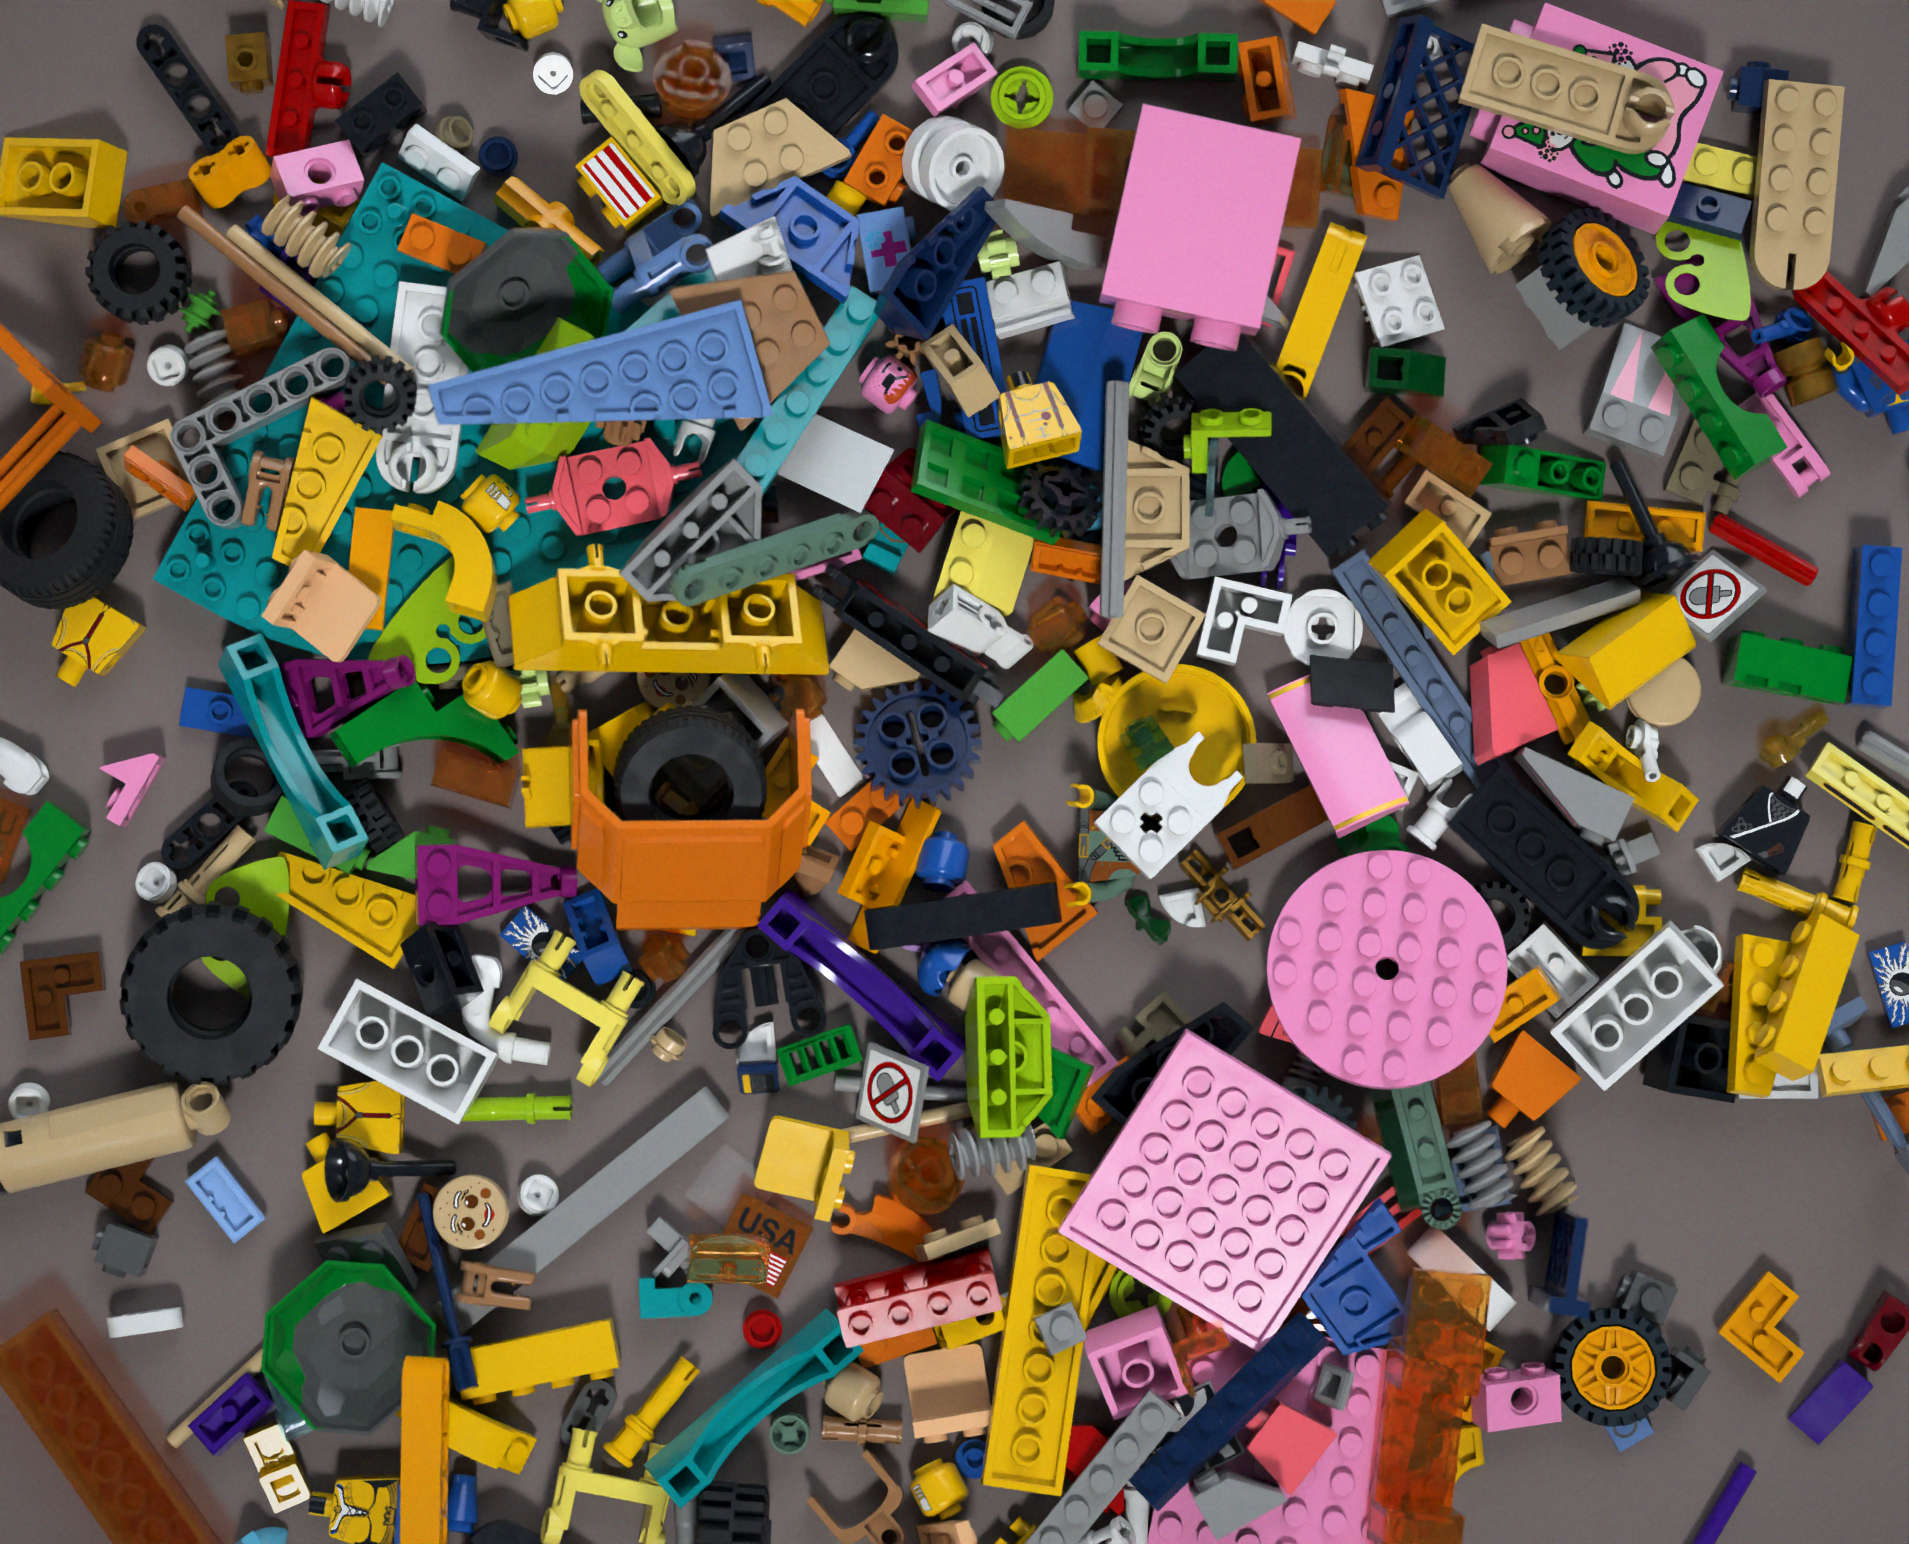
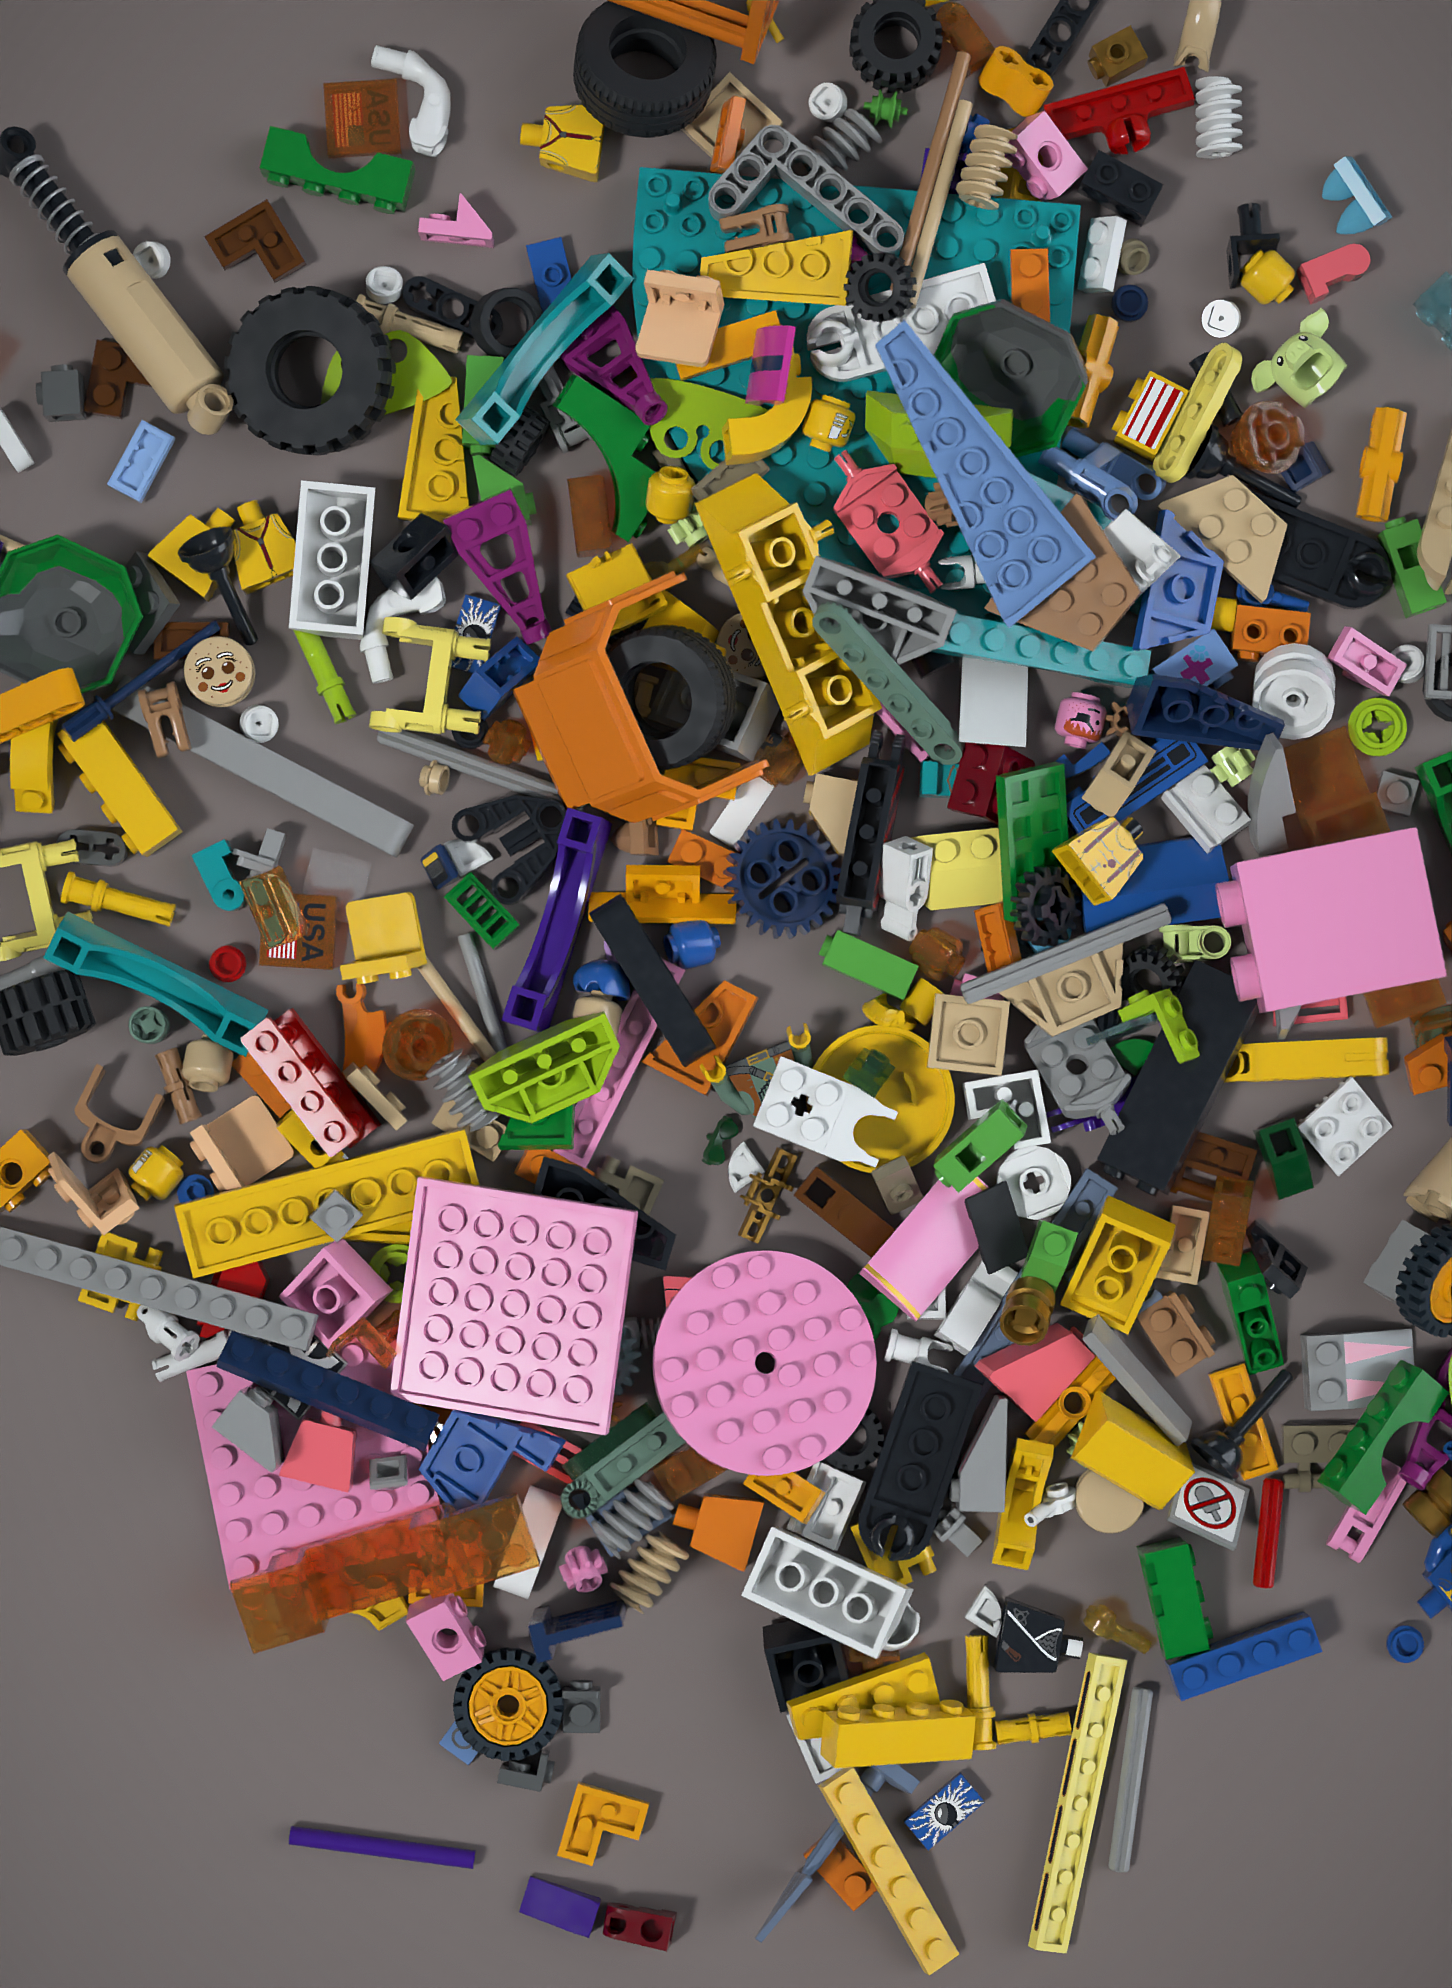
camera: 65 degrees right, 0 degrees up
(105, 361) = (807, 47): clear orange head -> none
(255, 328) = (891, 159): clear orange brick -> none
(409, 535) = (770, 365): none -> dark pink slope
(892, 1092) = (476, 985): piece -> none
(1266, 666) = (979, 1146): none -> bright green brick
(1405, 649) = (1049, 1253): none -> bright green slope
(1447, 689) = (1027, 1311): none -> pearl gold wheel
(1606, 556) = (1202, 1399): black tyre -> none

